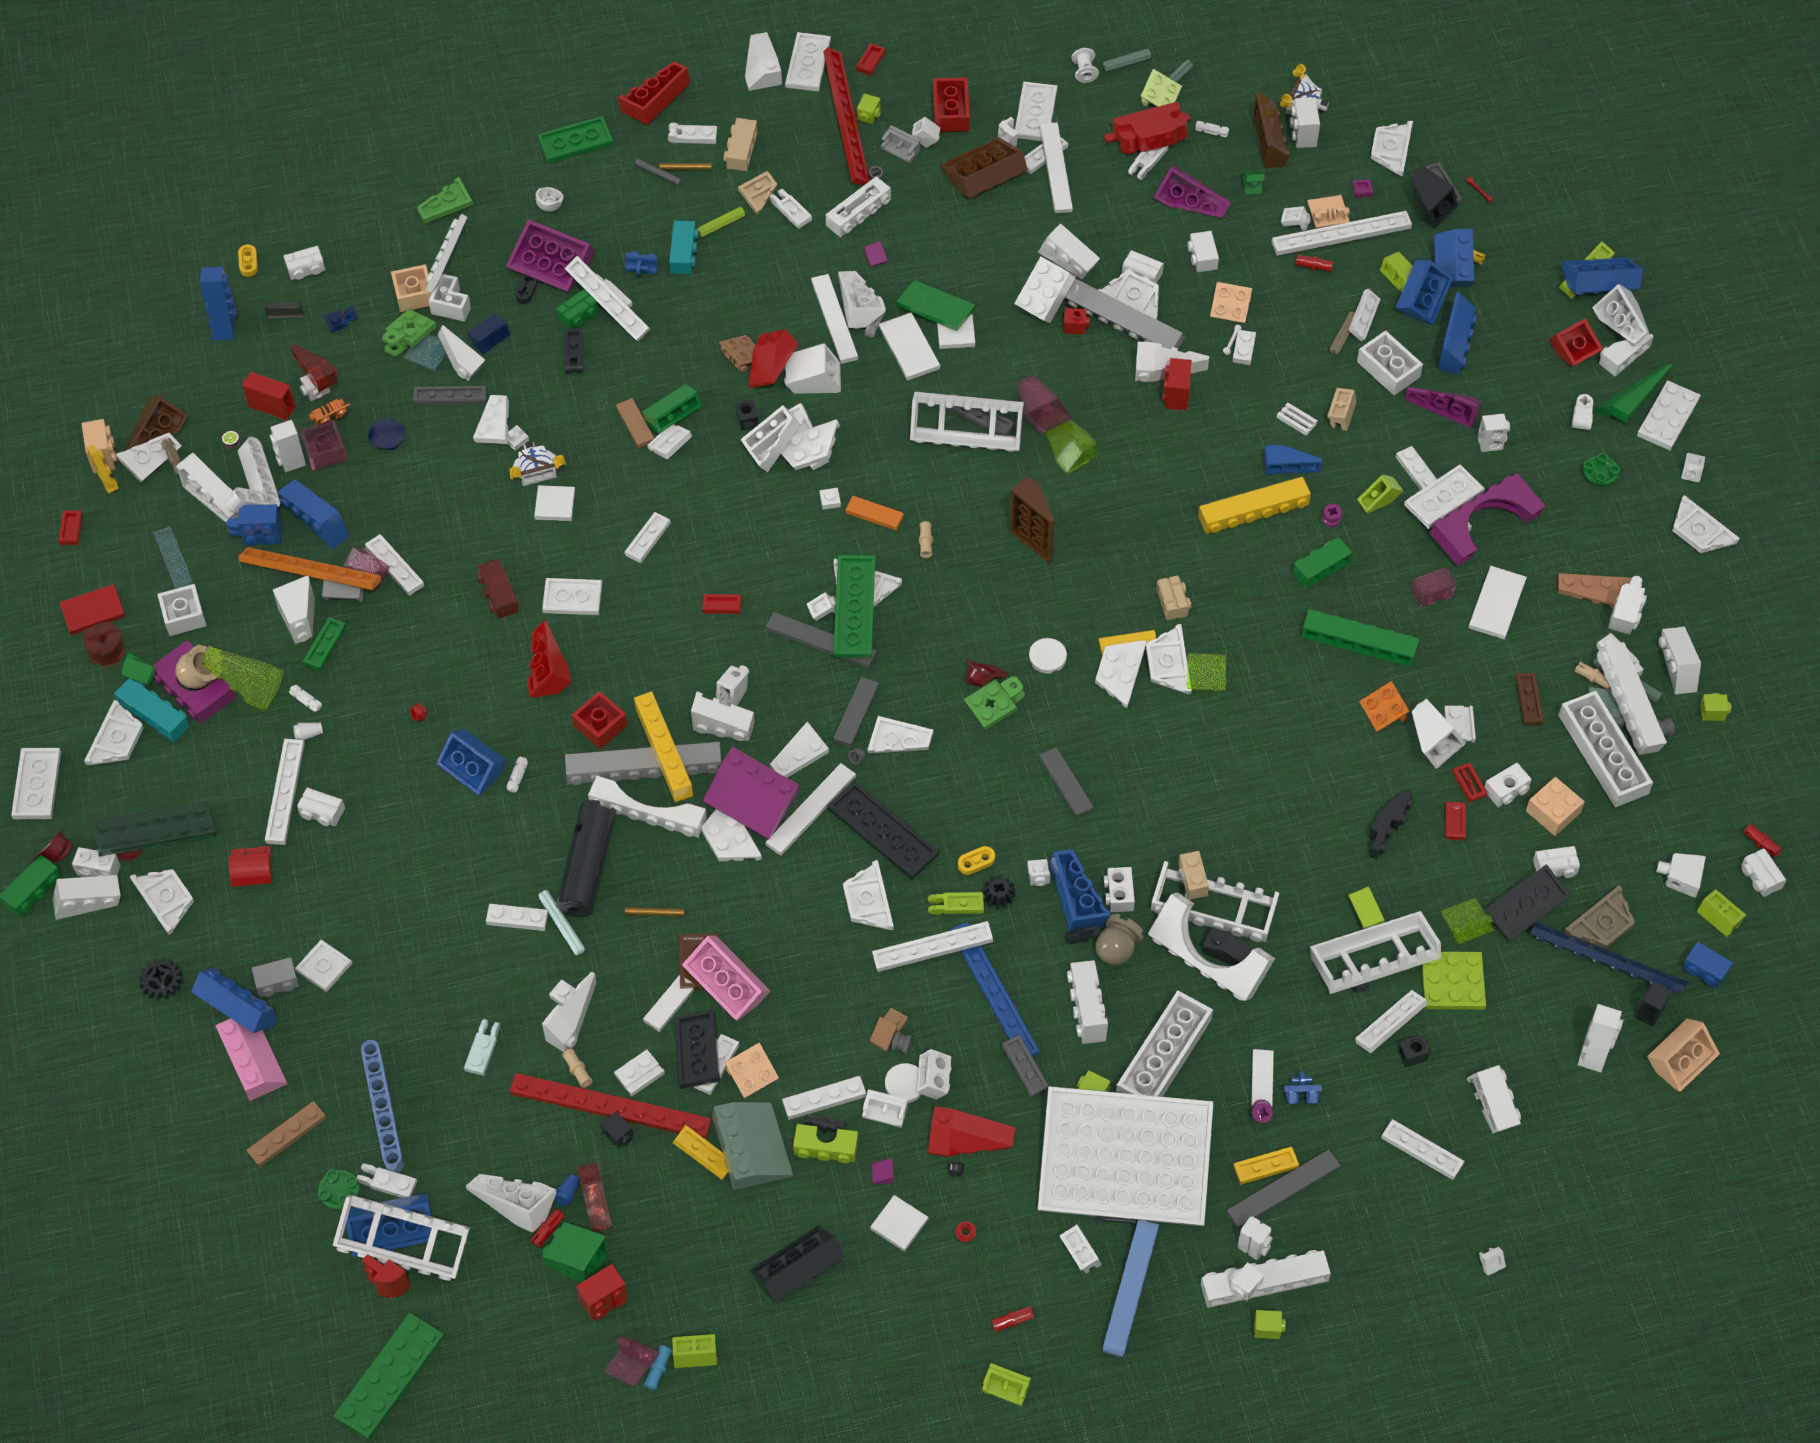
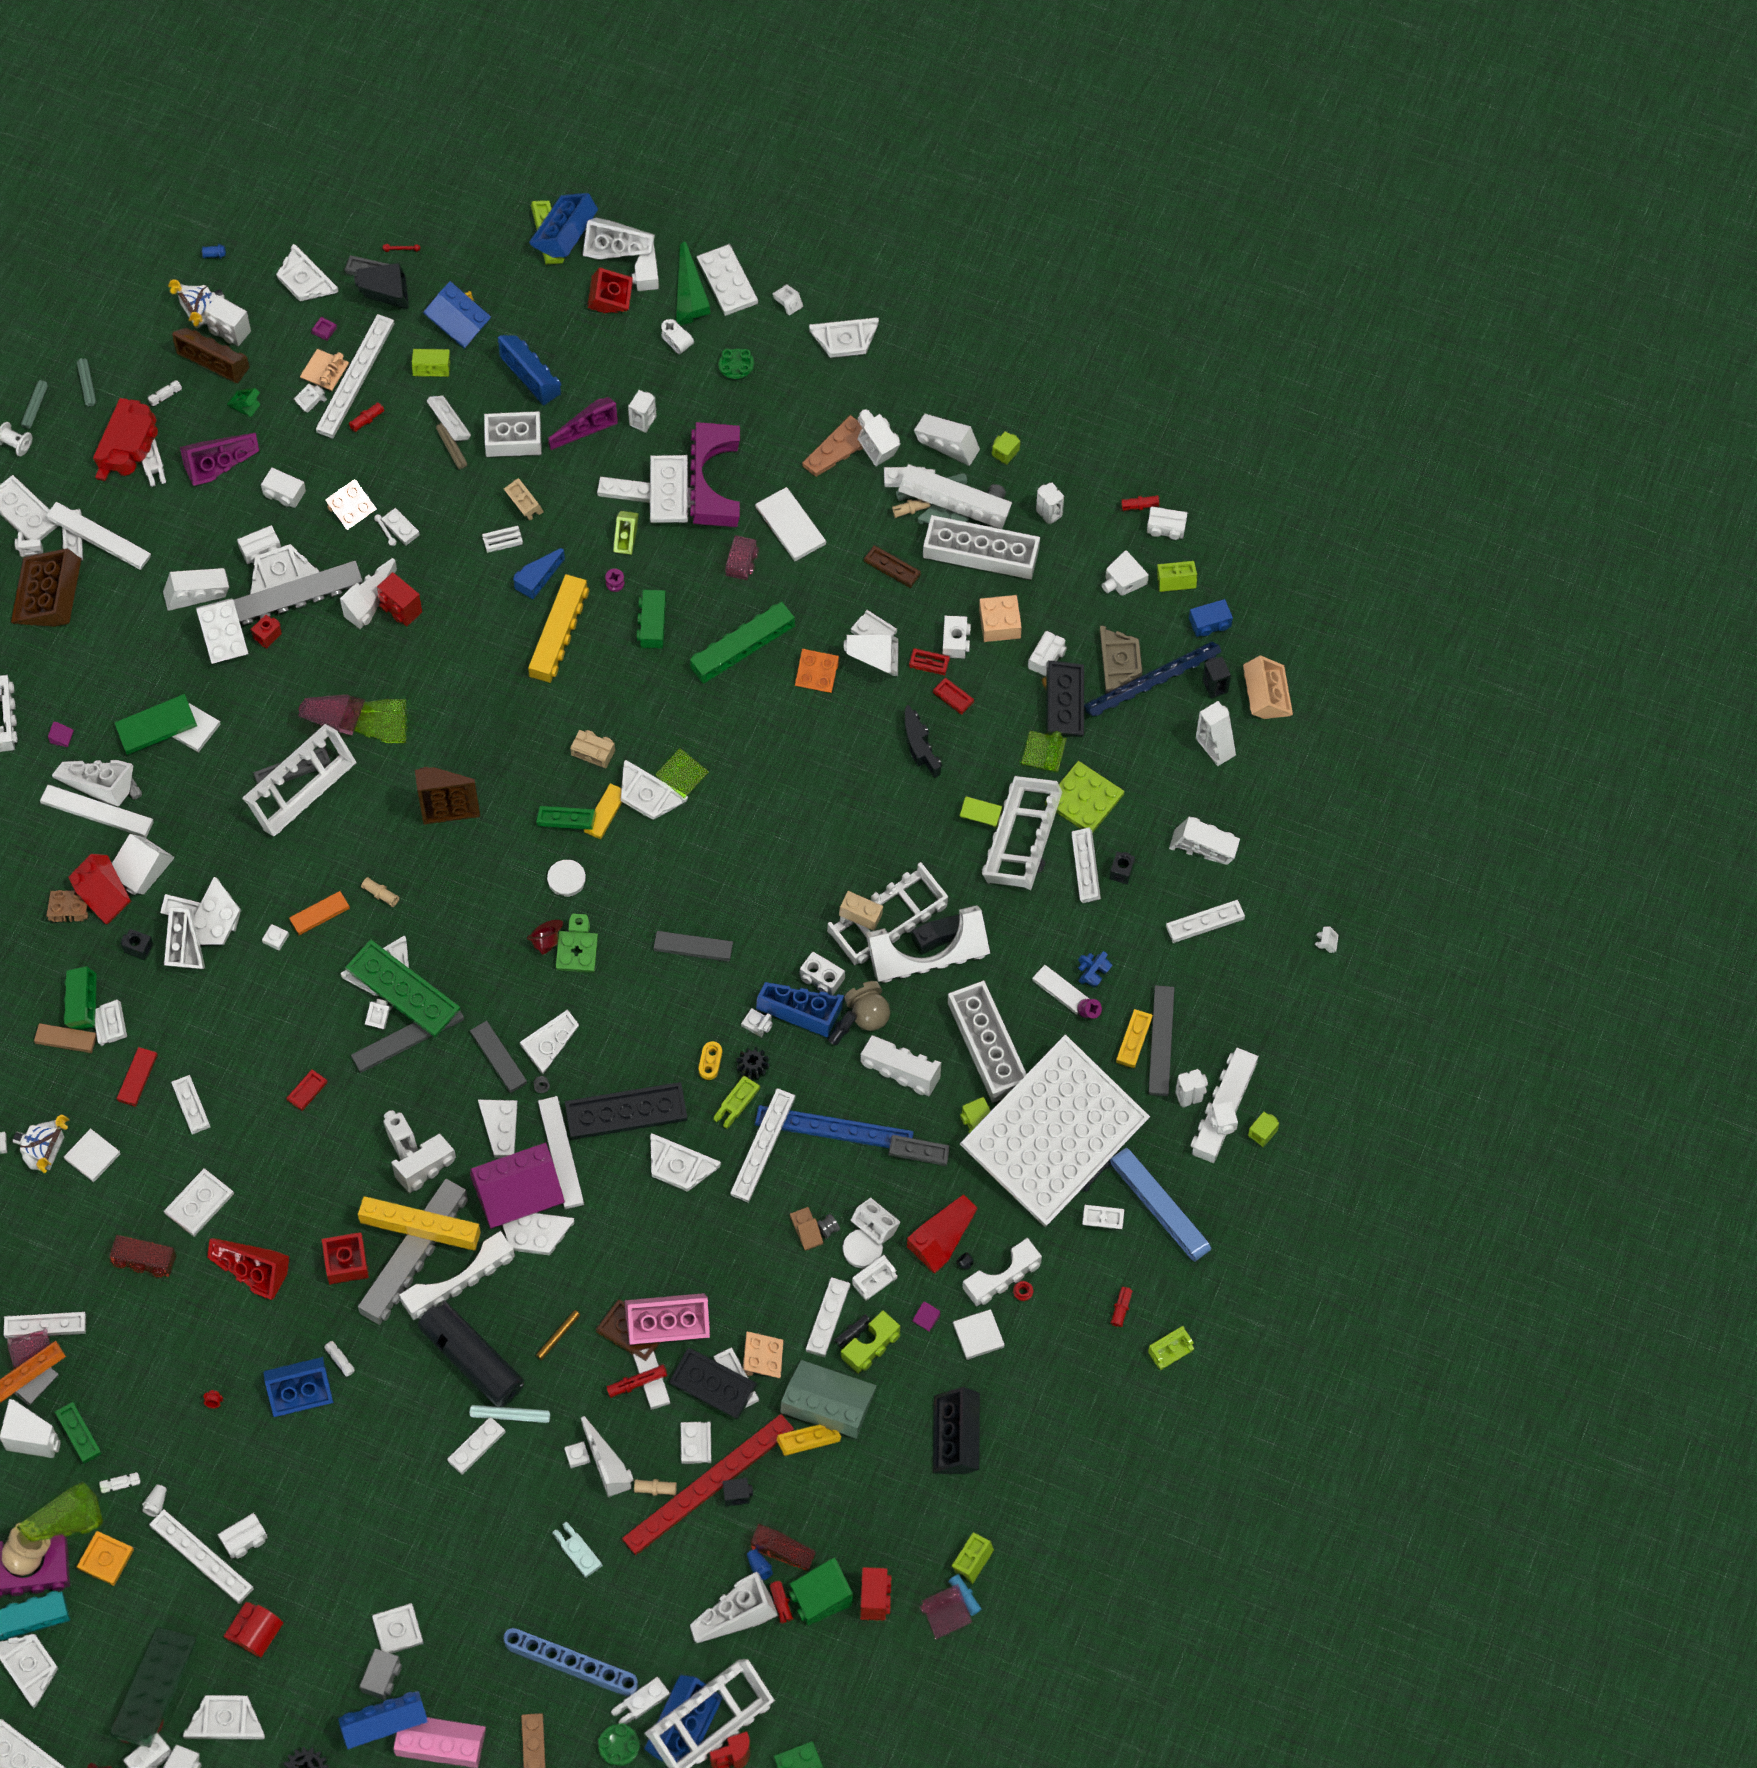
camera: 55 degrees left, 5 degrees up
(237, 729) = (105, 1558): none -> light orange plate
(641, 488) = (137, 1076): none -> red tile
(650, 989) = (638, 1380): none -> red pin
(909, 346) = (176, 773): white tile -> none
(991, 1212) = (982, 1287): none -> white arch
(1097, 619) = (566, 817): none -> green plate
(1120, 669) = (625, 834): white wing -> none
(1159, 90) = (92, 403): yellowish green hinge -> none
(1359, 80) = (214, 251): none -> blue pin
(1424, 291) = (468, 359): blue slope -> none
(1693, 770) = (1049, 503): none -> white brick

